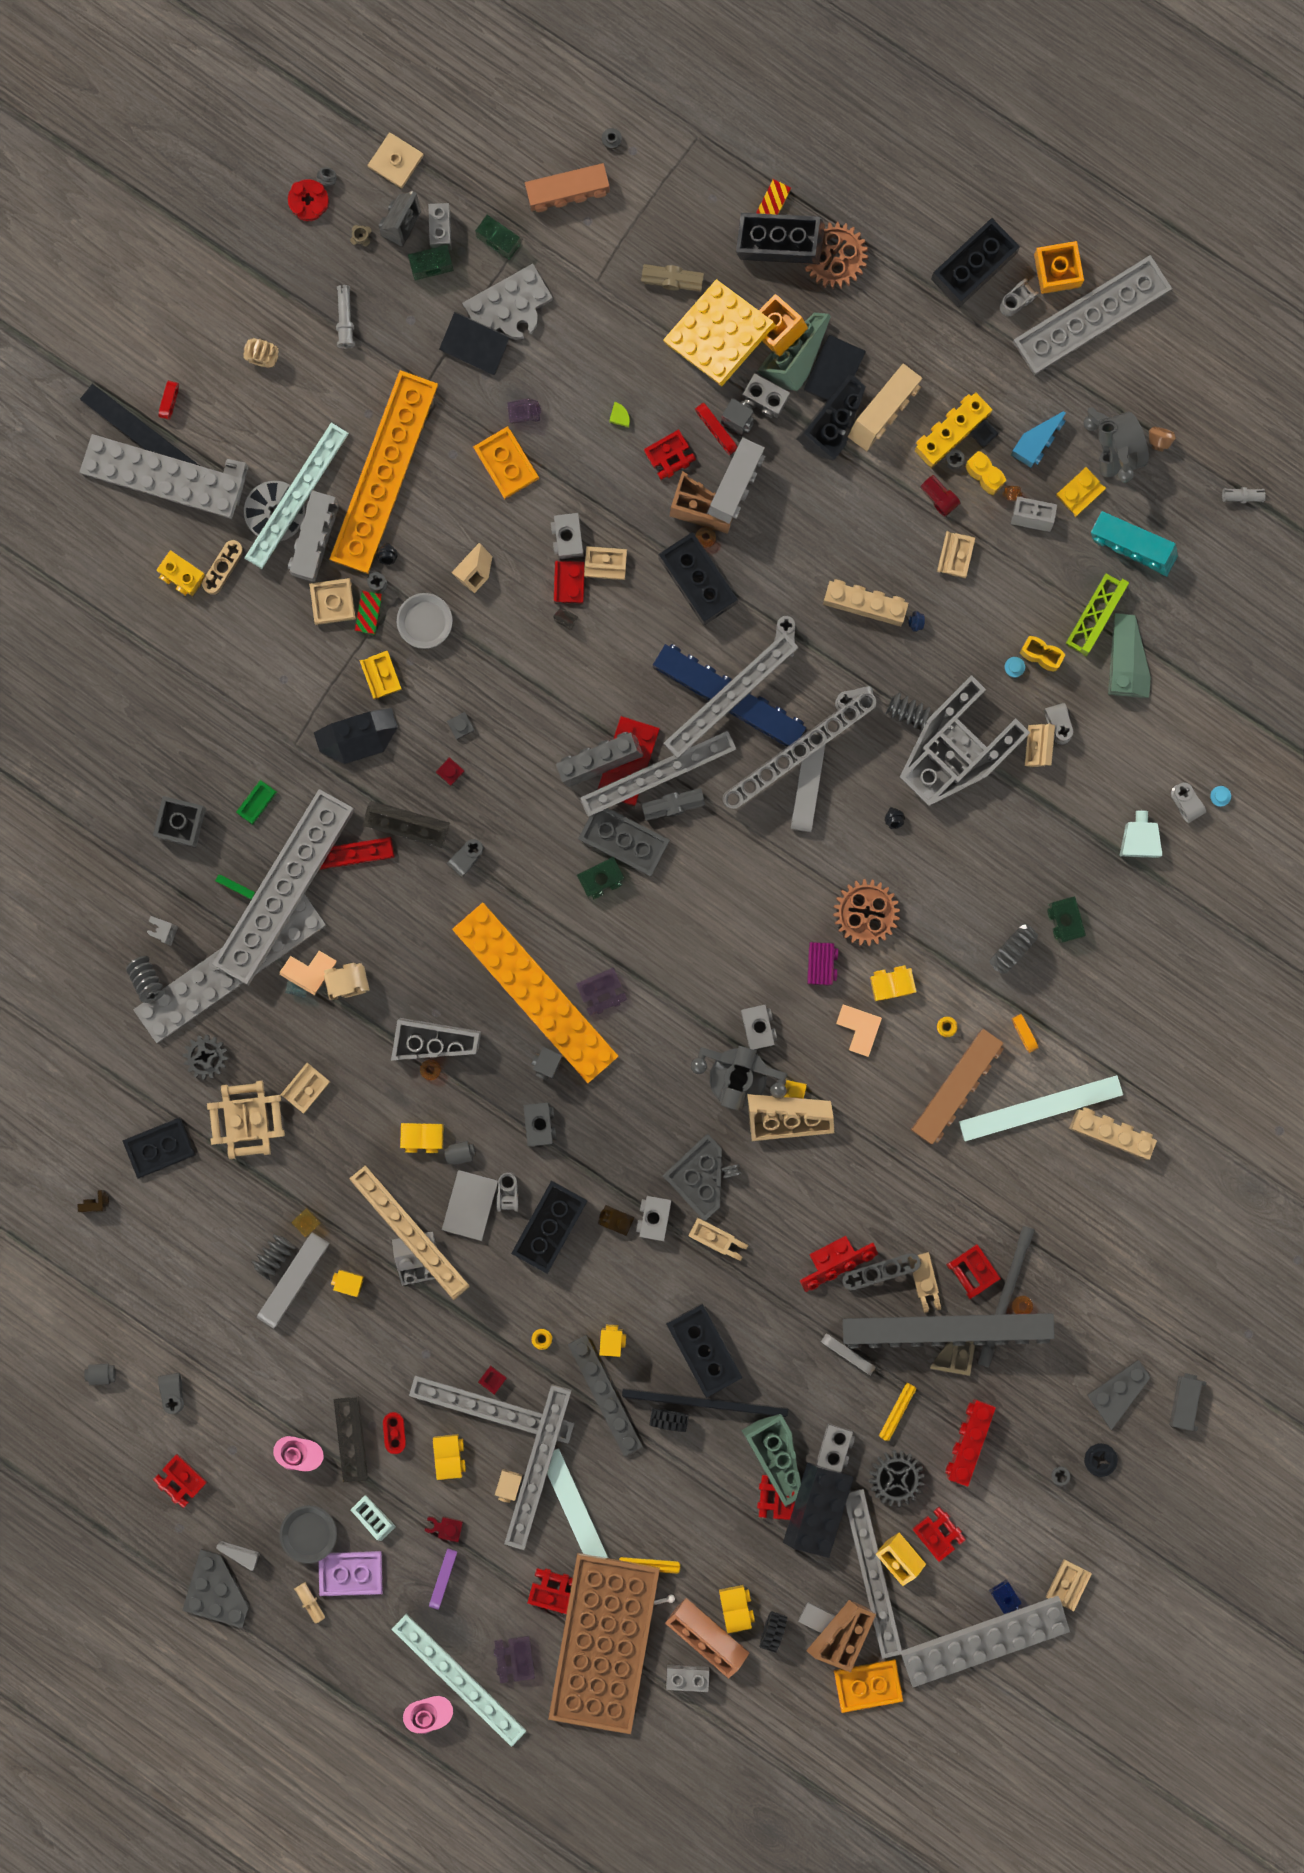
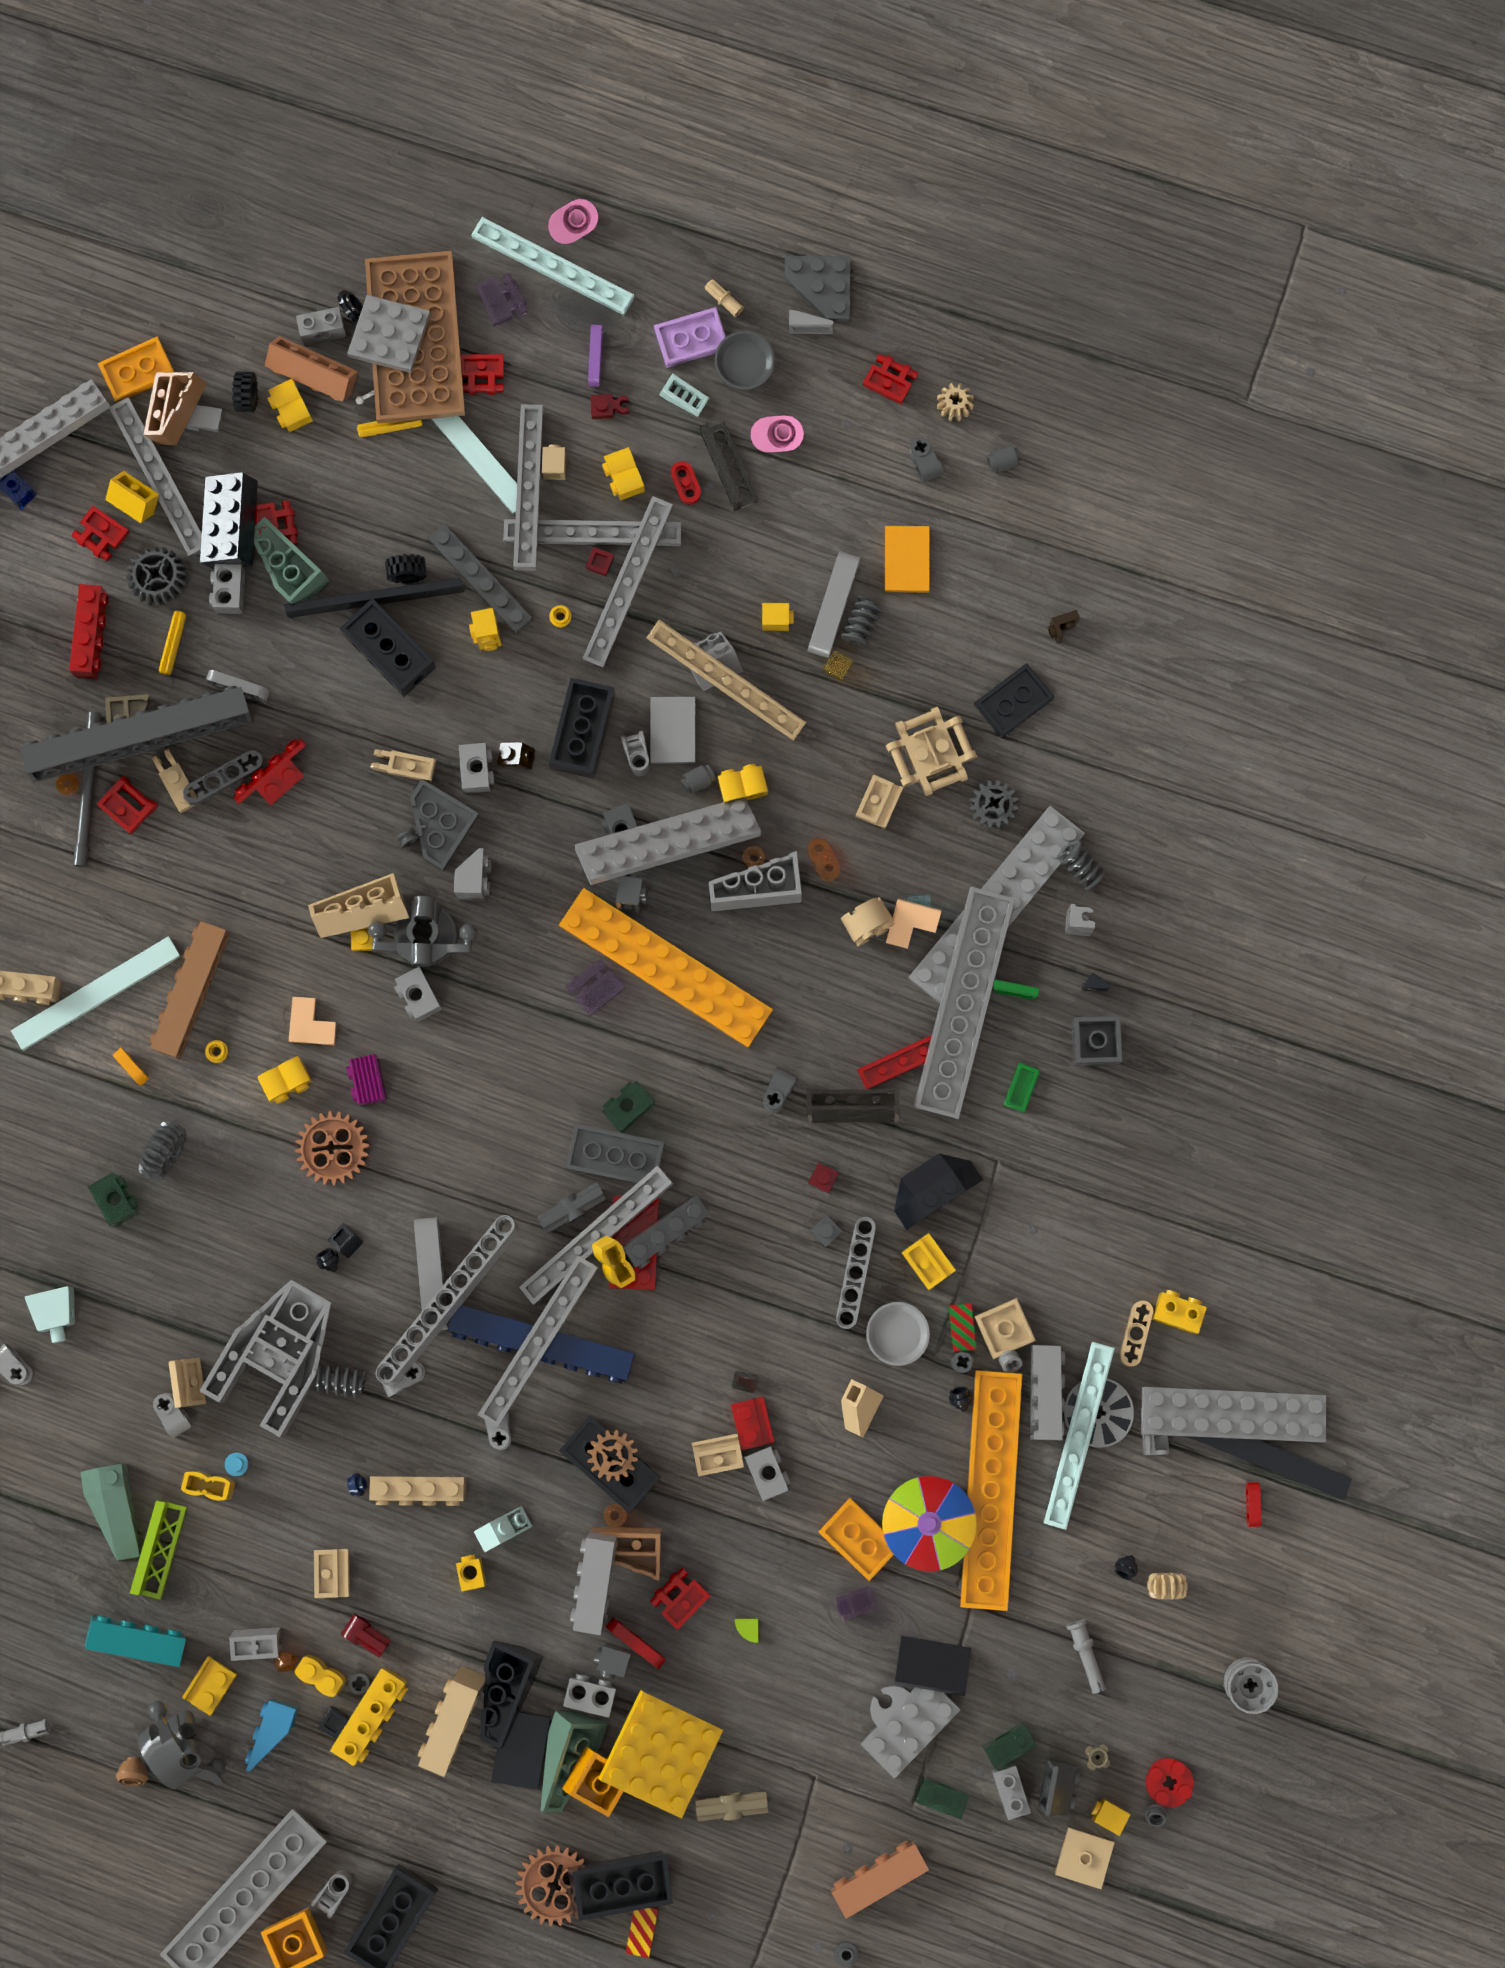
camera: 165 degrees right, 5 degrees down
(120, 1441) = (964, 402): none -> tan gear
(166, 874) = (1096, 983): none -> black slope
(214, 244) = (1262, 1692): none -> light grey wheel
(215, 1305) = (907, 559): none -> light orange tile
(290, 378) = (1126, 1567): none -> black plate
(336, 572) = (1010, 1361): none -> light grey bush
(364, 185) = (1110, 1816): none -> yellow brick
(369, 1050) = (822, 859): none -> clear orange plate
(443, 457) = (929, 1523): none -> dish
(445, 692) = (860, 1262): none -> light grey beam
(472, 1351) = (627, 582): none -> light grey plate
(501, 1100) = (667, 840): none -> light grey plate
(626, 1650) = (389, 334): none -> light grey plate
(648, 743) = (613, 1261): none -> yellow brick
(654, 1689) = (350, 305): none -> black gear
(684, 1115) = (471, 877): none -> light grey slope
(699, 587) = (606, 1465): none -> medium nougat gear
(802, 551) = (503, 1529): none -> light aqua slope
(842, 514) = (465, 1582): none -> yellow brick
(875, 831) = (345, 1240): none -> black slope

